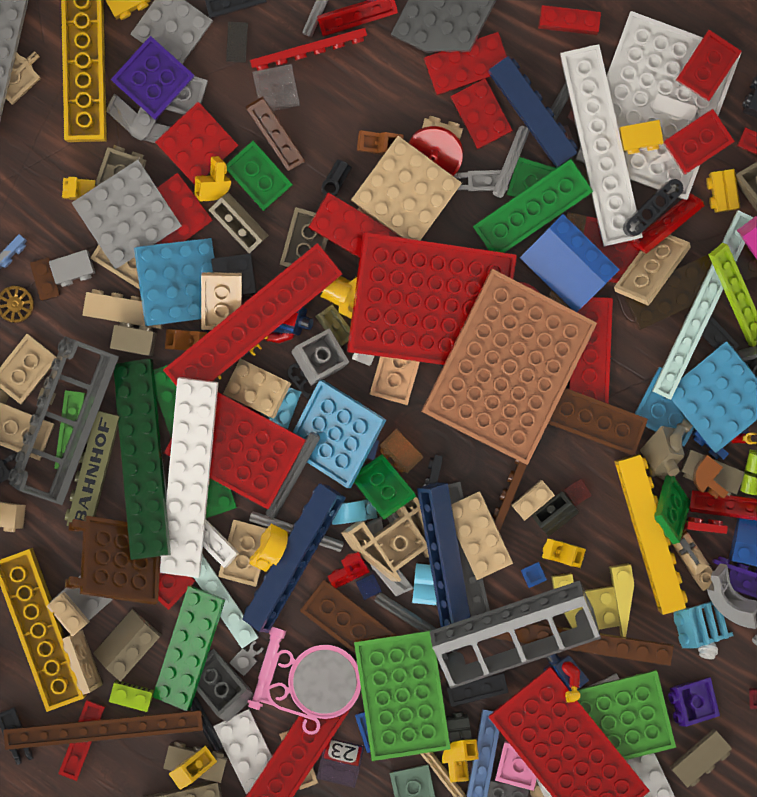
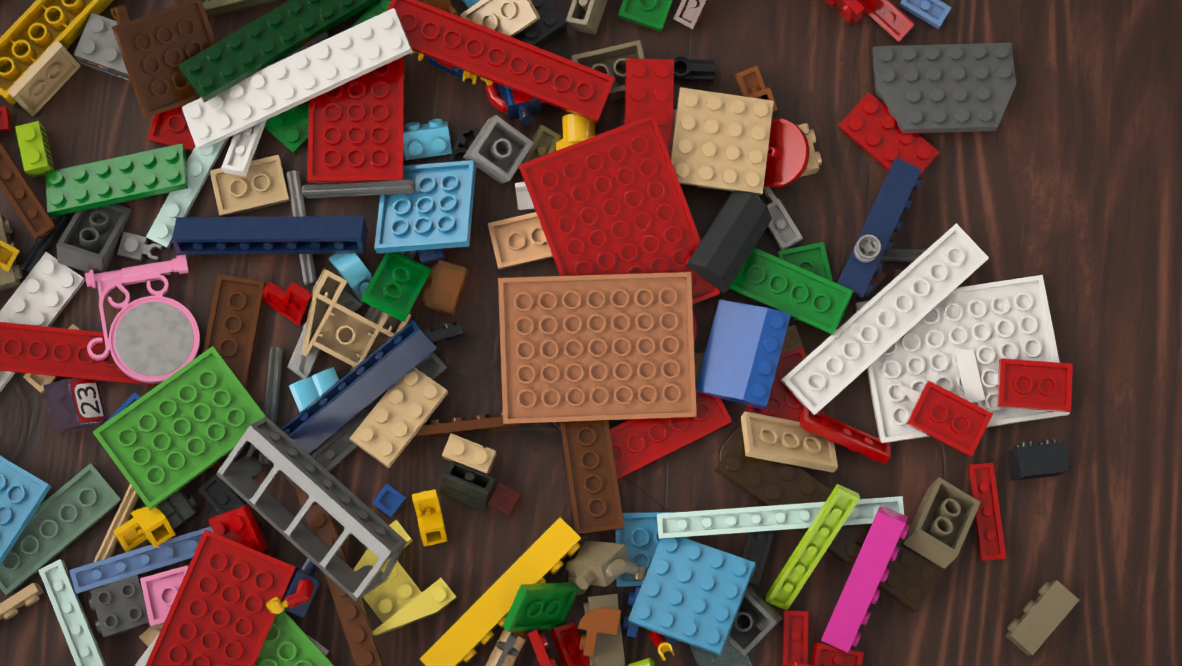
camera: 55 degrees right, 10 degrees down
(68, 613) = (86, 32): tan brick -> none
(126, 645) = (86, 118): dark tan slope -> none
(257, 388) = (429, 105): tan plate -> none
(271, 548) = (267, 204): yellow brick -> none
(368, 586) = (282, 334): clear blue plate -> none
(481, 113) = (845, 182): red plate -> none
(483, 226) = (730, 240): none -> black piece
(497, 691) = (240, 527): none -> red plate
(511, 161) = (813, 236): light grey axle -> none
(546, 131) = (867, 248): none -> light grey wheel
(569, 20) = (995, 217): red brick -> none
(641, 136) = (918, 355): yellow brick -> none
(654, 209) = (852, 408): black beam -> none
(724, 191) = (913, 477): yellow brick -> none

